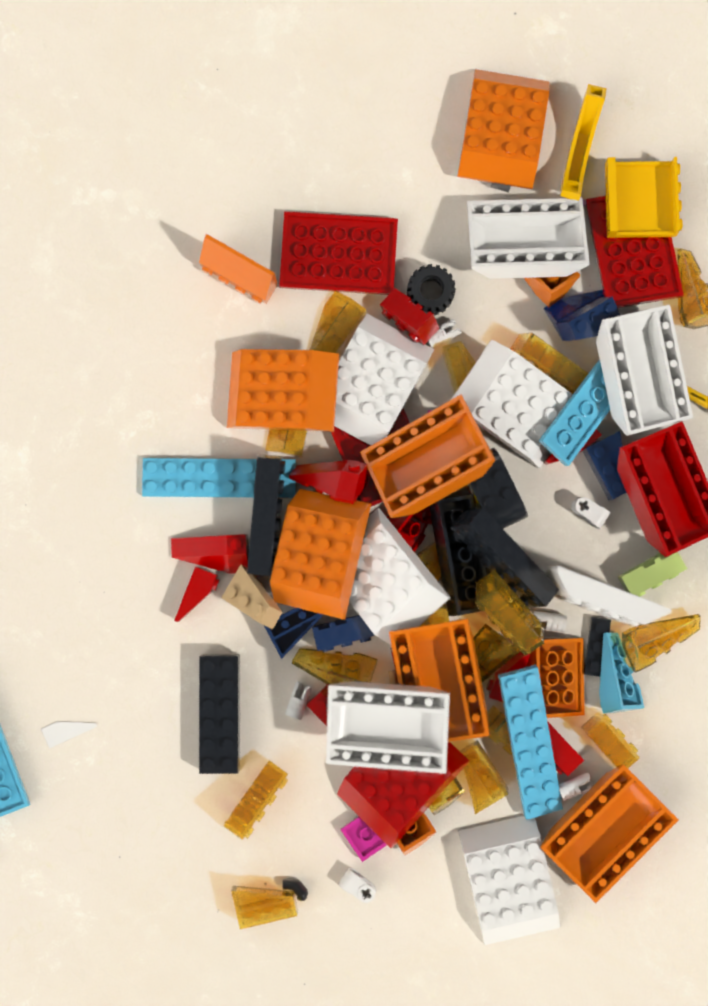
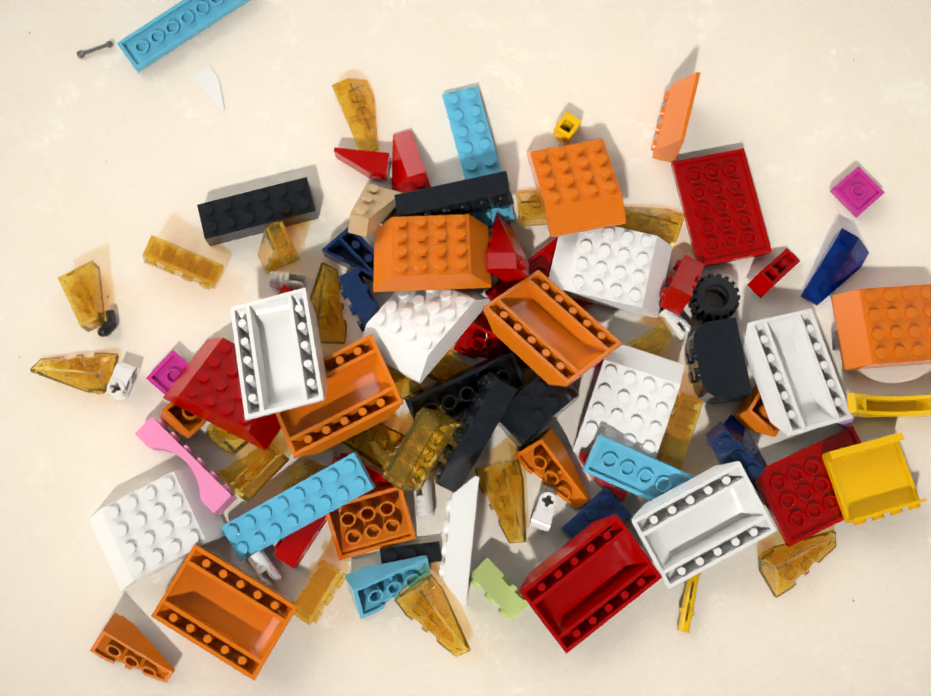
camera: 75 degrees right, 10 degrees down
(134, 585) = (358, 109): none -> clear yellow wedge
(210, 375) = (569, 123): none -> yellow brick
(267, 703) = (276, 248): none -> clear yellow wedge
(339, 922) = (80, 372): none -> clear yellow wedge
(358, 115) = (857, 192): none -> dark pink plate
(419, 223) = (773, 272): none -> red slope
(426, 159) = (840, 261): none -> clear blue wedge
(494, 306) = (717, 362): none -> black brick
(494, 819) = (212, 491): none -> bright pink arch
(548, 490) = (551, 463): none -> orange wedge
(560, 542) = (505, 490): none -> clear yellow wedge
(610, 932) = (126, 644): none -> orange wedge

